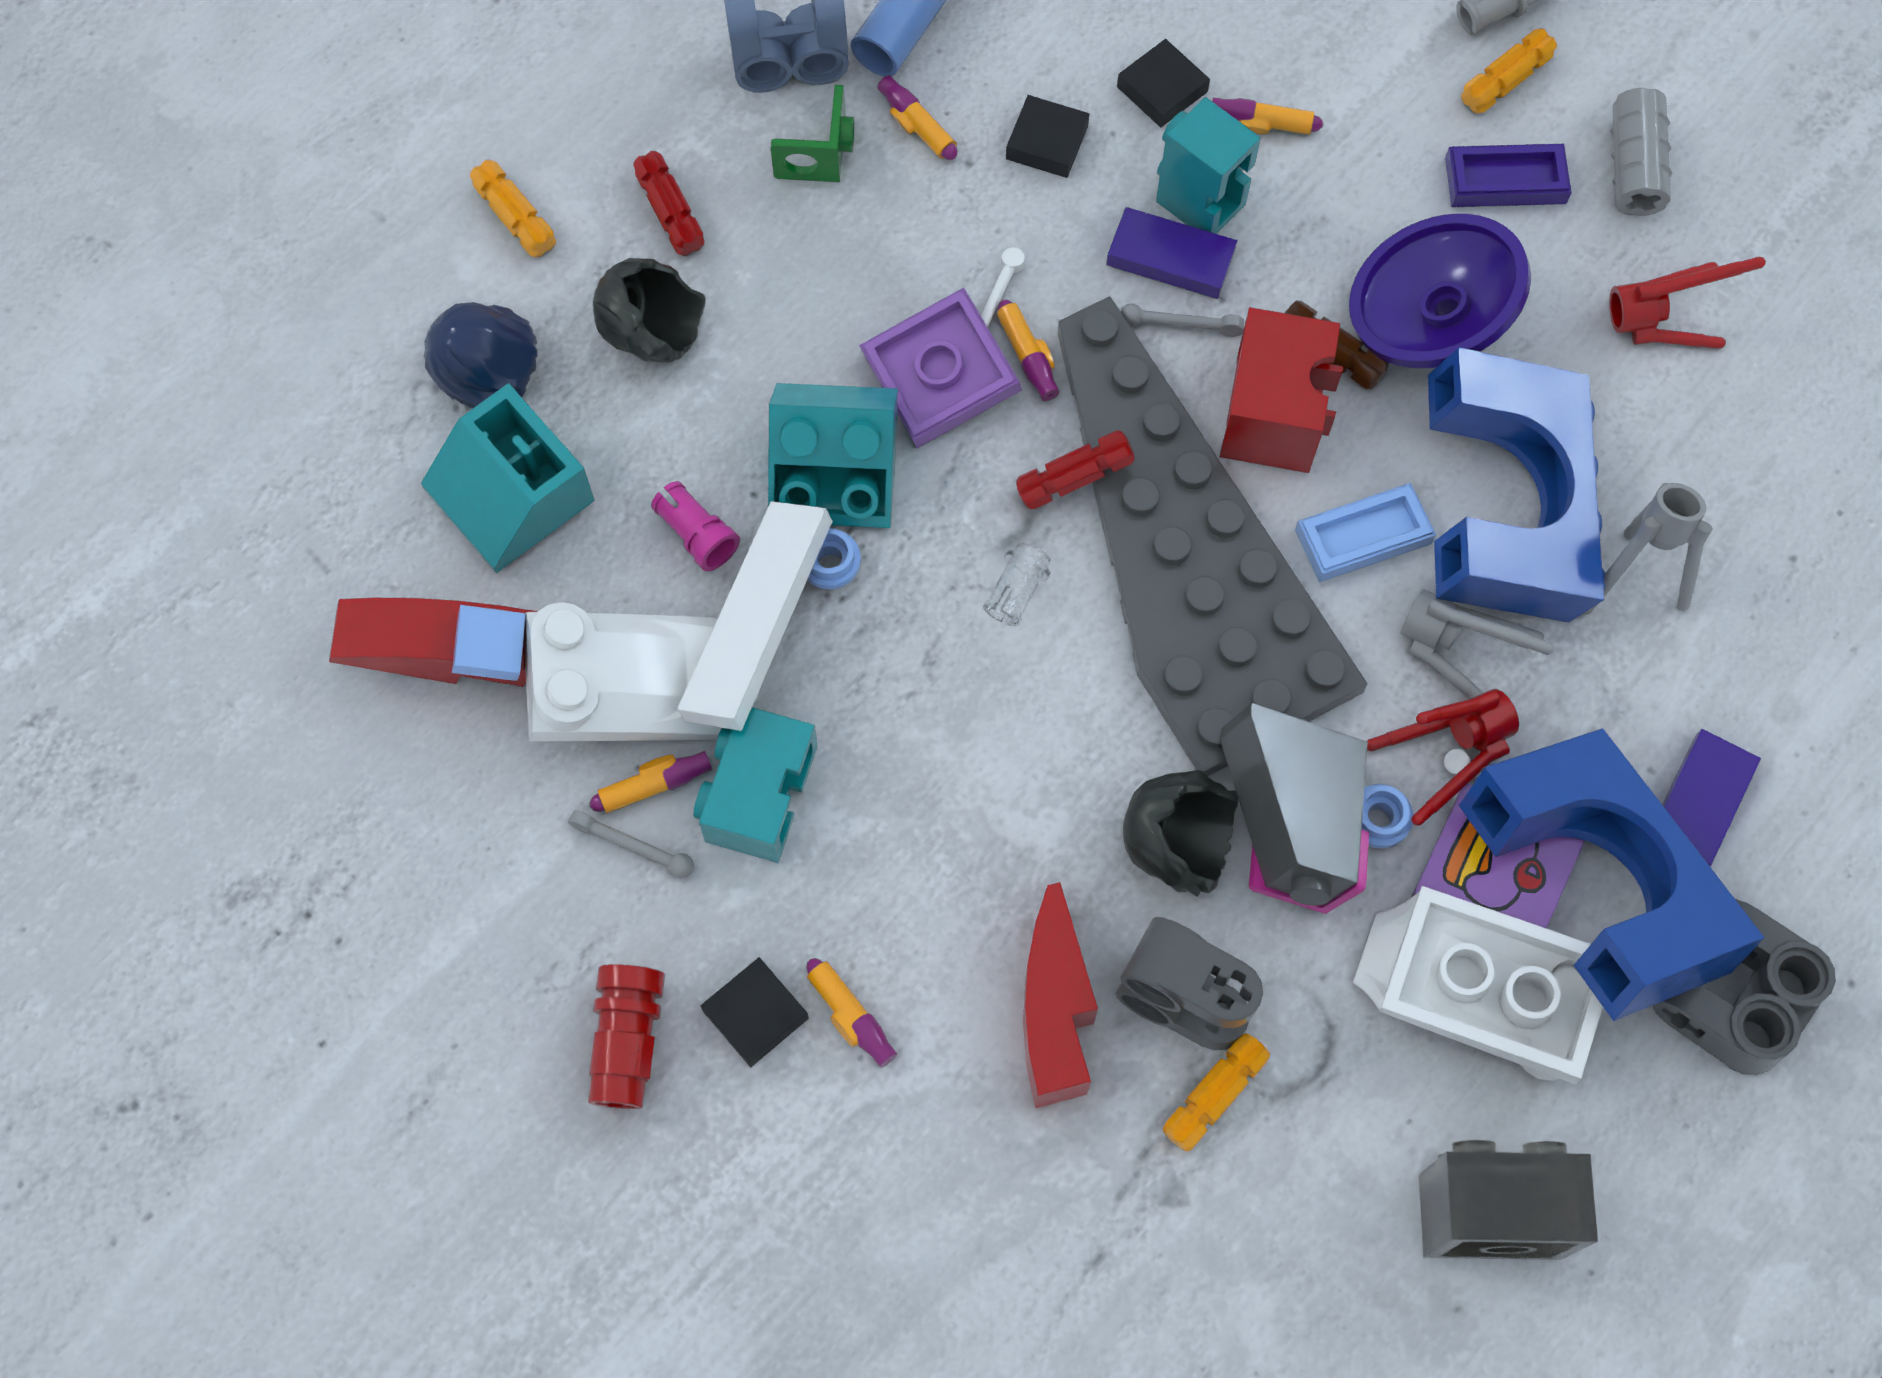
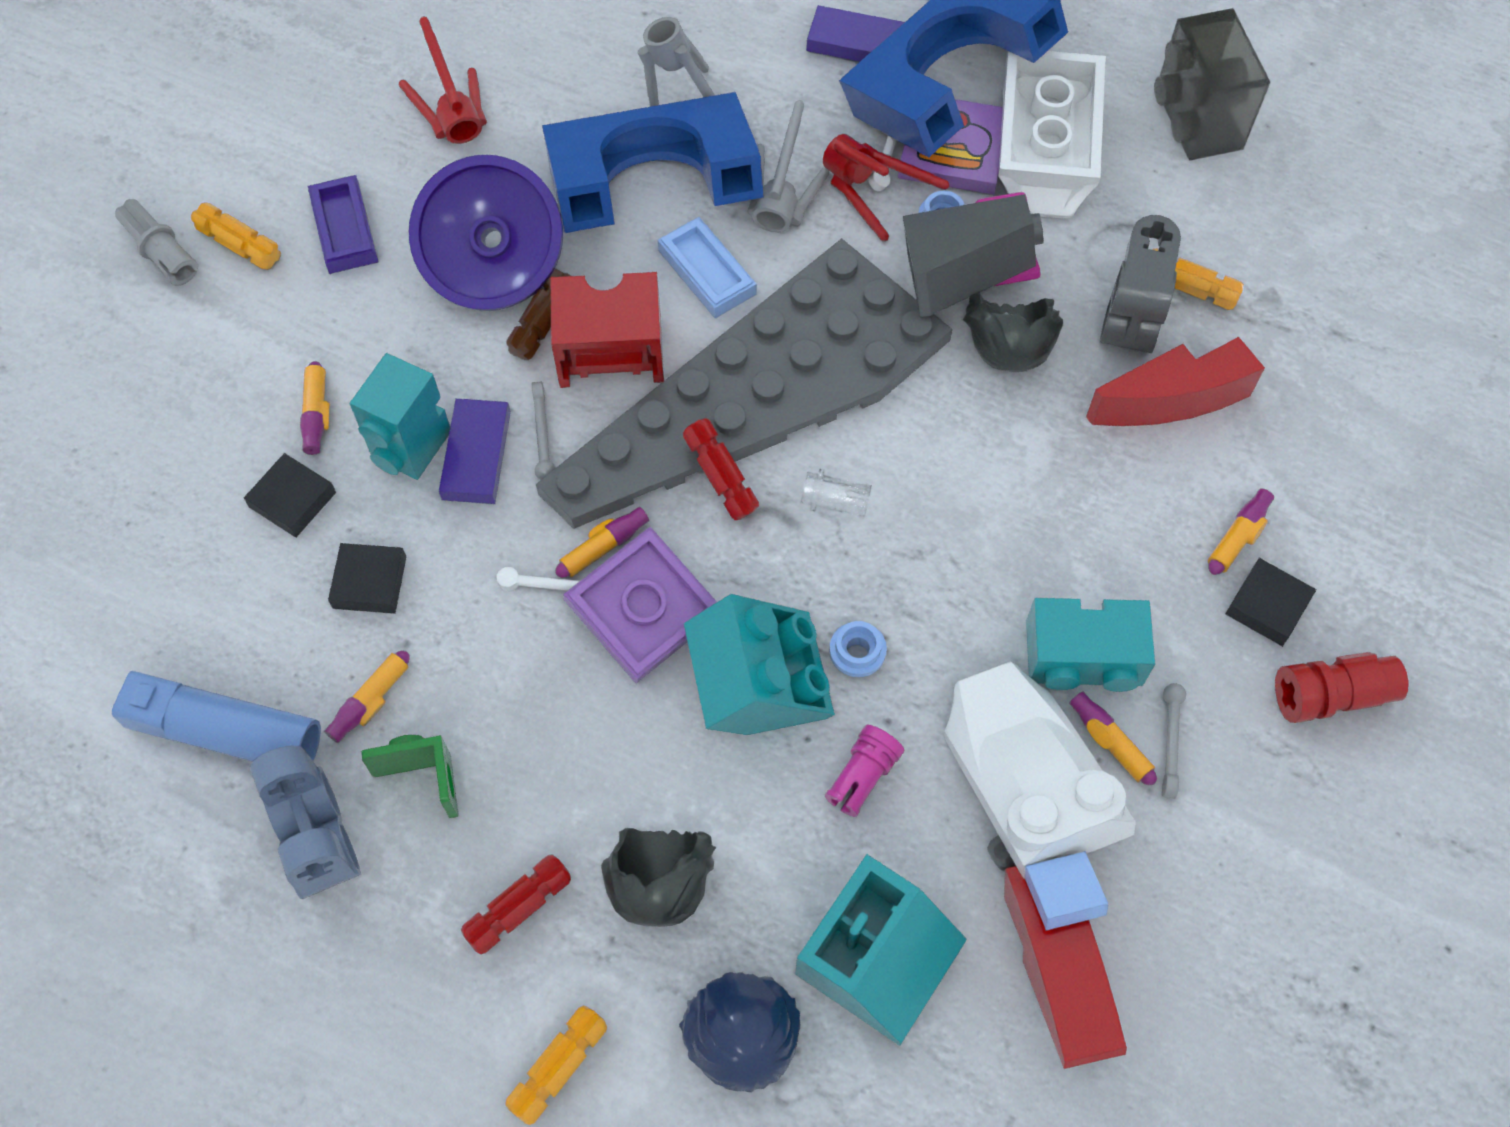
camera: 105 degrees left, 5 degrees down
(755, 616) = (949, 673): white tile -> none
(1641, 152) = (307, 132): light grey axle -> none

